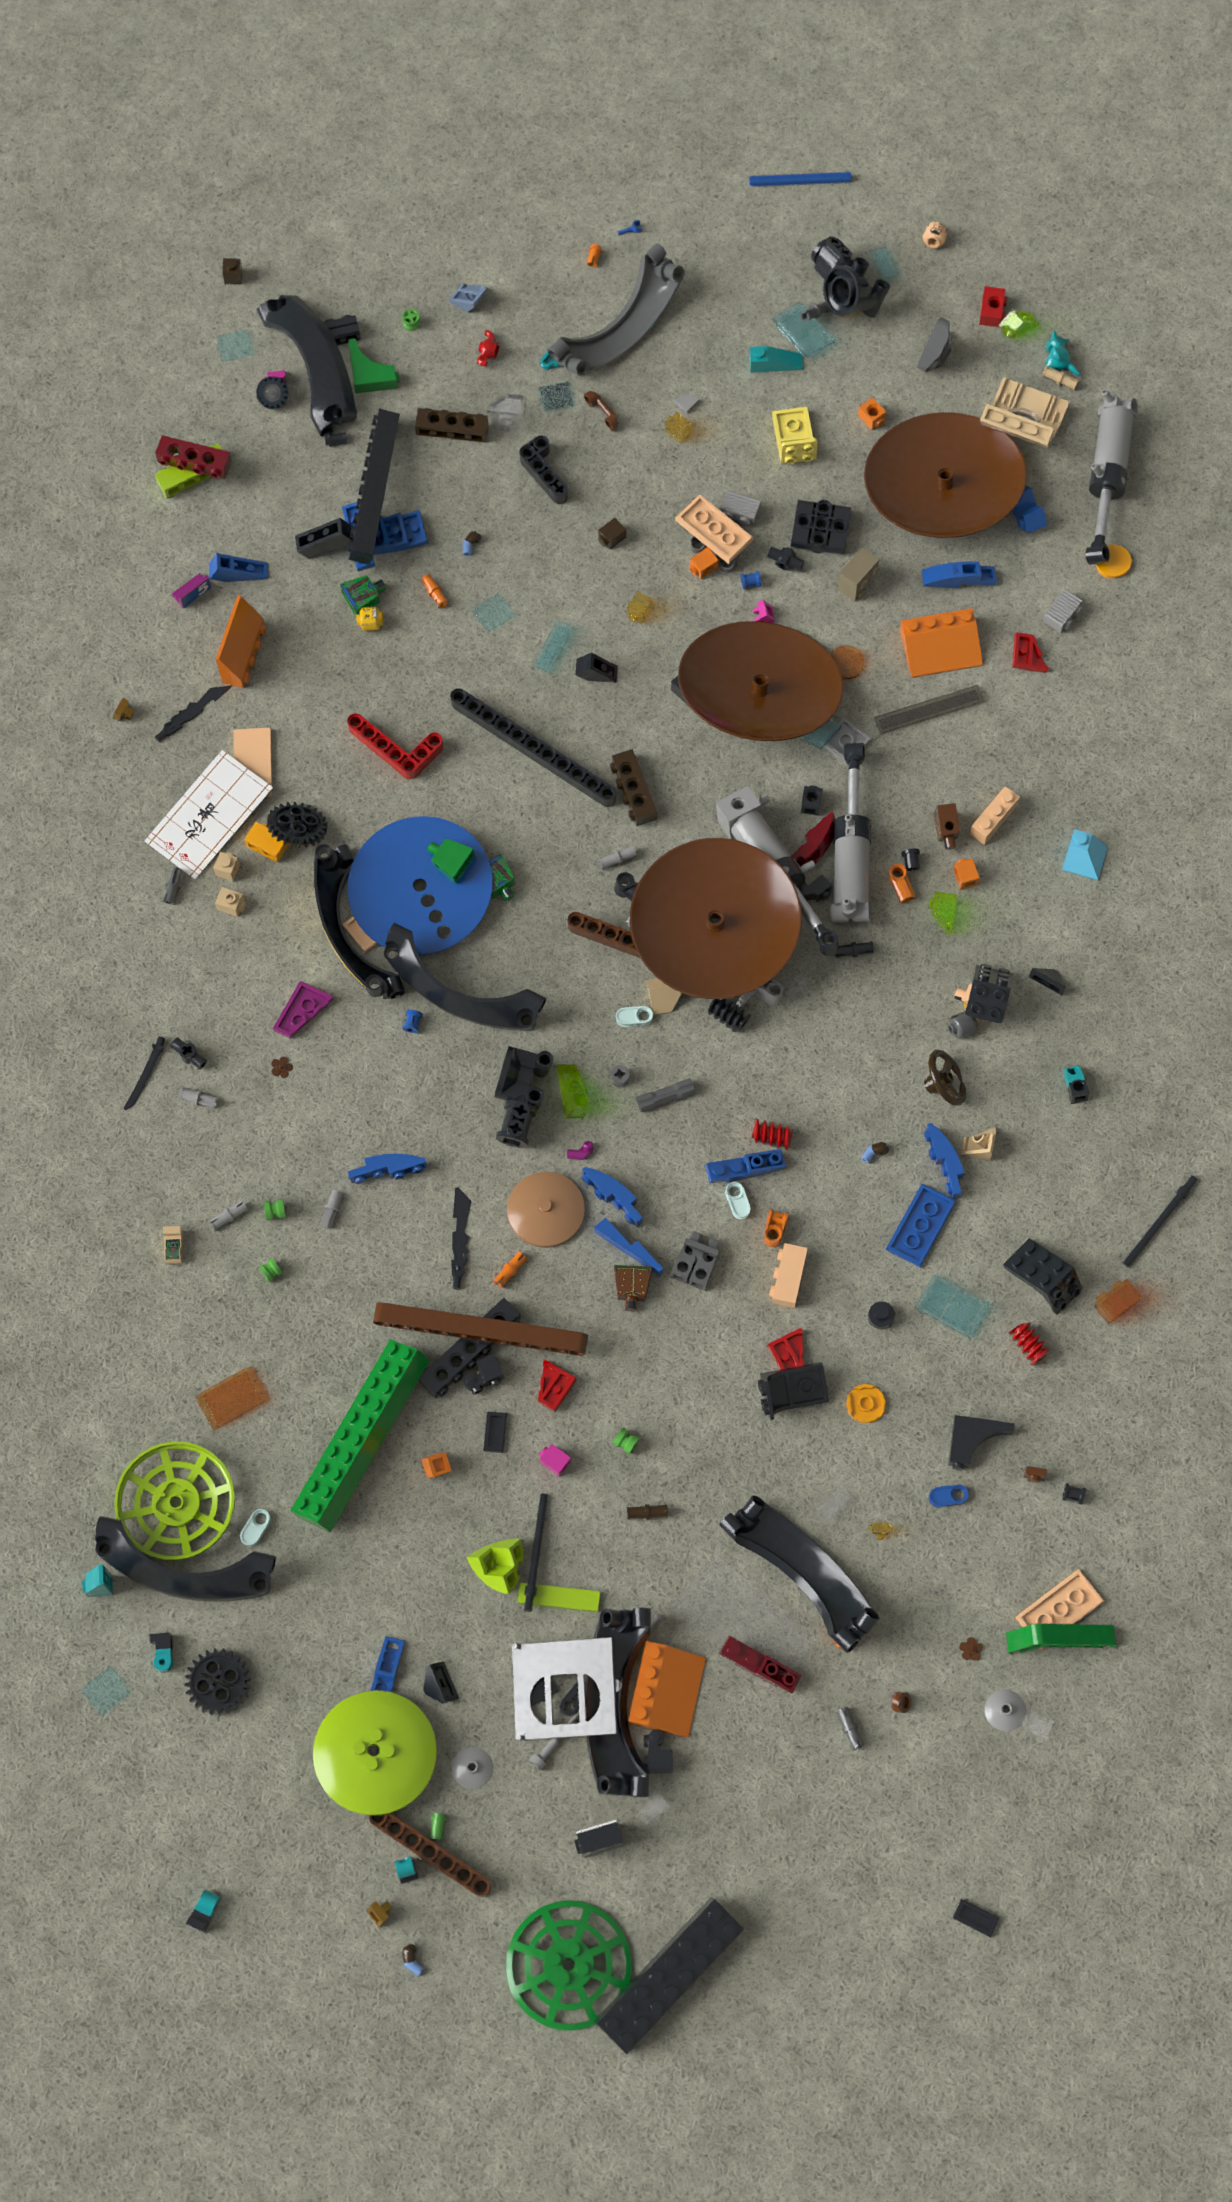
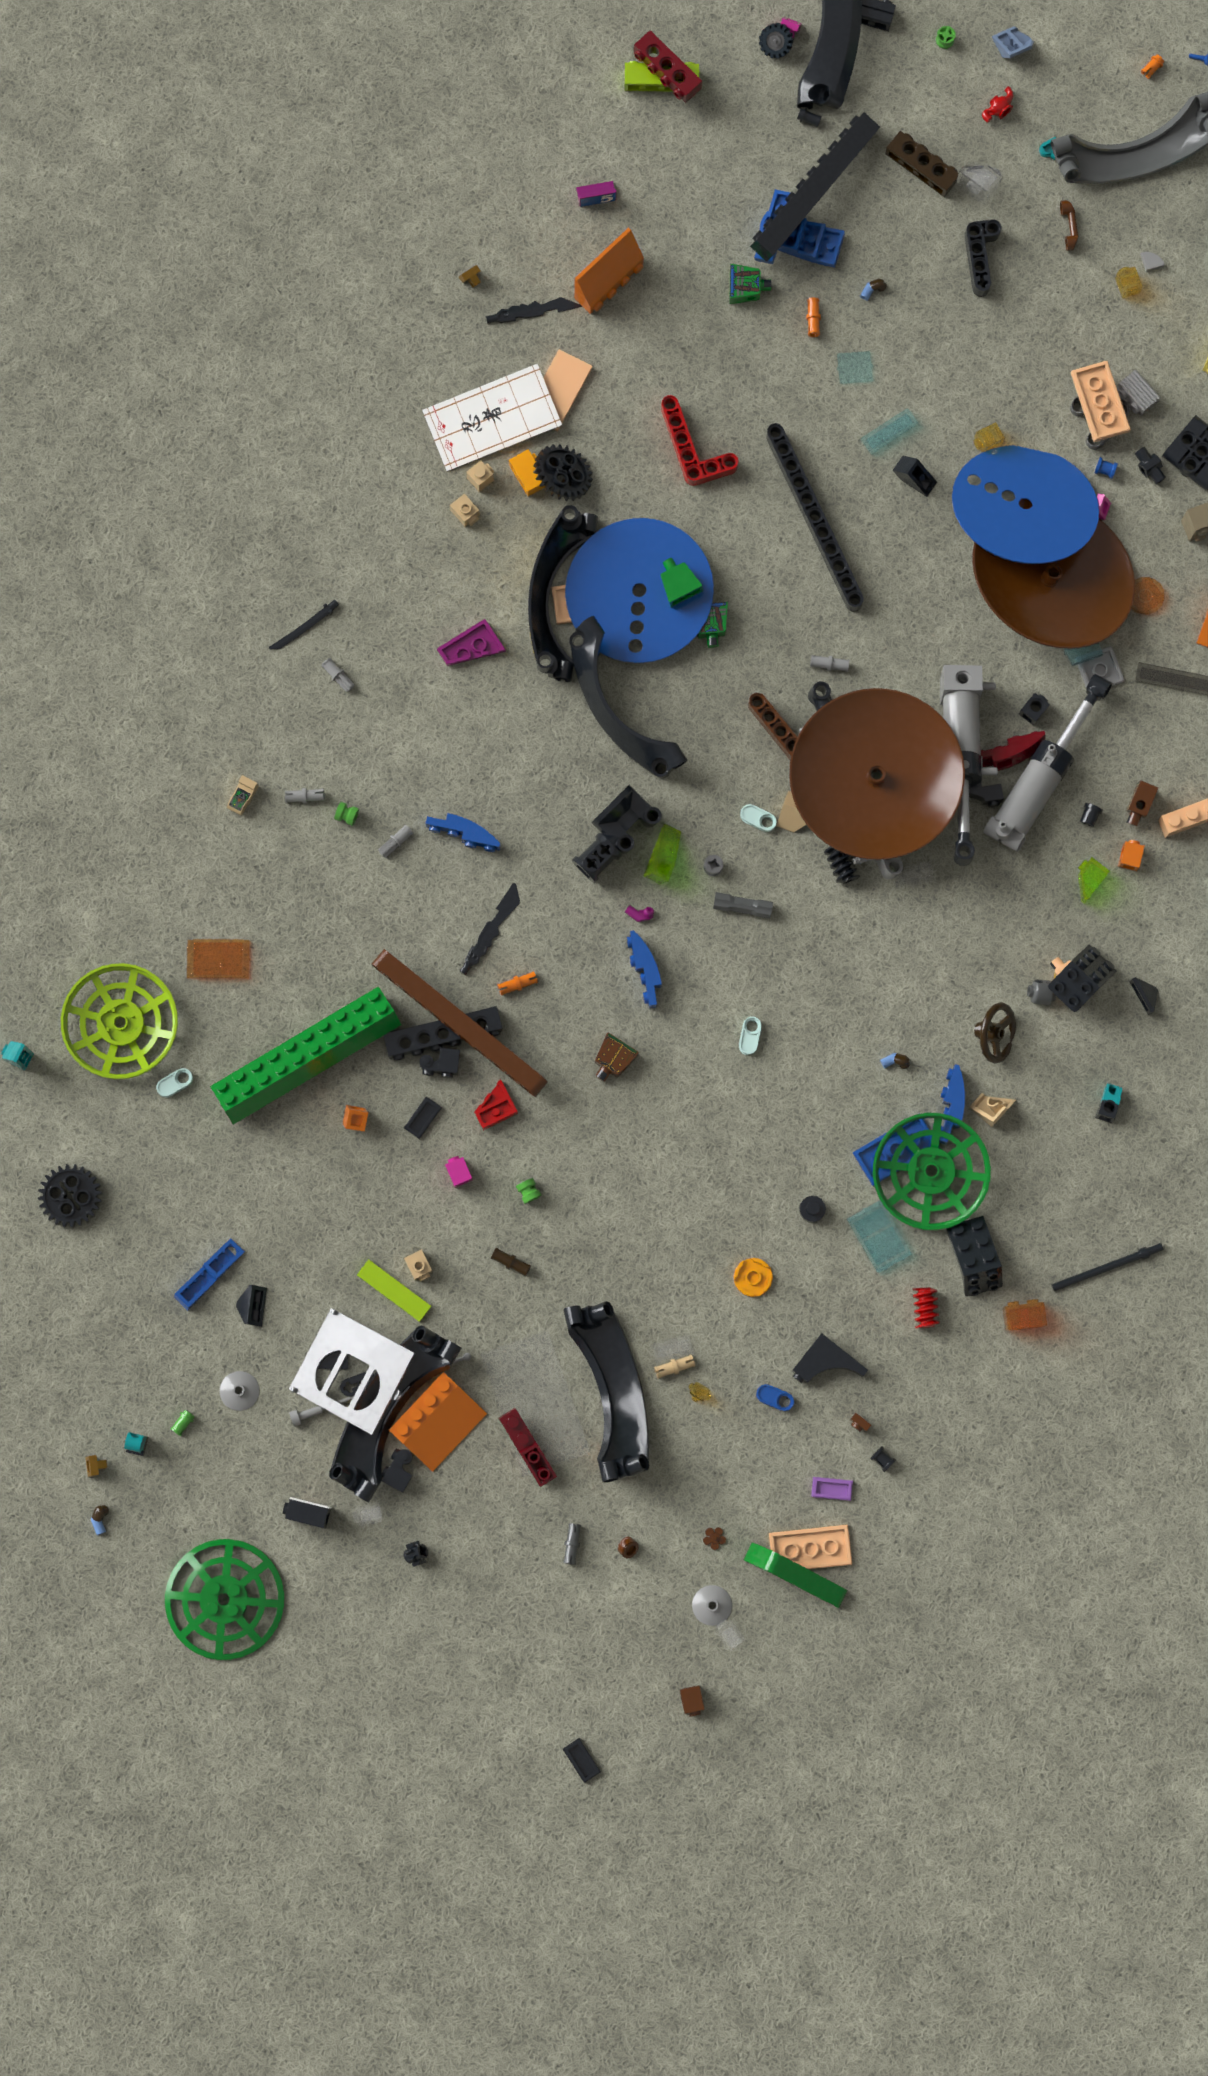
camera: 25 degrees right, 10 degrees up
(164, 1651) = (40, 1143): leg -> none
(172, 886) = (423, 467): dark grey axle -> none
(195, 1058) = (348, 621): black axle -> none
(221, 1585) = (124, 1119): black panel -> none
(232, 569) = (648, 196): blue slope -> none
(270, 1270) = (312, 865): bright green wheel -> none
(281, 1066) = (425, 687): reddish brown plant -> none
(323, 538) = (740, 212): black brick -> none
(369, 375) = (875, 72): green arch -> none
(370, 618) = (740, 312): yellow head -> none
(382, 1781) = (171, 1360): lime dish -> none
(416, 1016) = (567, 710): blue bush -> none
(436, 1860) = (156, 1433): reddish brown beam -> none
(498, 1564) = (359, 1233): lime brick -> none
(530, 1589) = (373, 1271): black bar -> none
(546, 1209) = (579, 947): medium nougat dish -> none
(556, 396) = (1035, 188): clear light blue piece -> none
(568, 1562) = (419, 1266): none -> tan brick
(612, 533) = (1005, 352): dark brown brick -> none
(627, 762) = (890, 578): dark brown brick -> none
(635, 1251) = (621, 1001): blue slope -> none
(668, 1975) = (300, 1656): black brick -> none
(697, 1254) = (685, 1064): dark grey hips -> none
(703, 563) = (1072, 428): orange brick -> none
(717, 1819) = (415, 1553): none -> black gear
(738, 644) = (1061, 511): none -> blue piece
(745, 1167) = (774, 1010): blue slope -> none
(772, 1134) = (814, 994): red piece -> none
(775, 1225) = (769, 1076): orange piece -> none
(788, 1275) = (753, 1127): light nougat brick -> none
(788, 1350) = (713, 1195): red wing -> none
(792, 1388) = (696, 1228): black bracket -> none
(845, 1519) = (674, 1366): none -> tan pin
(855, 949) = (989, 868): black pin -> none
(902, 884) = (1067, 833): orange piece -> none
(972, 1214) = (931, 1184): none -> green dish
(1040, 1804) = (692, 1700): none -> reddish brown brick
(1045, 1545) = (832, 1488): none -> medium lavender tile

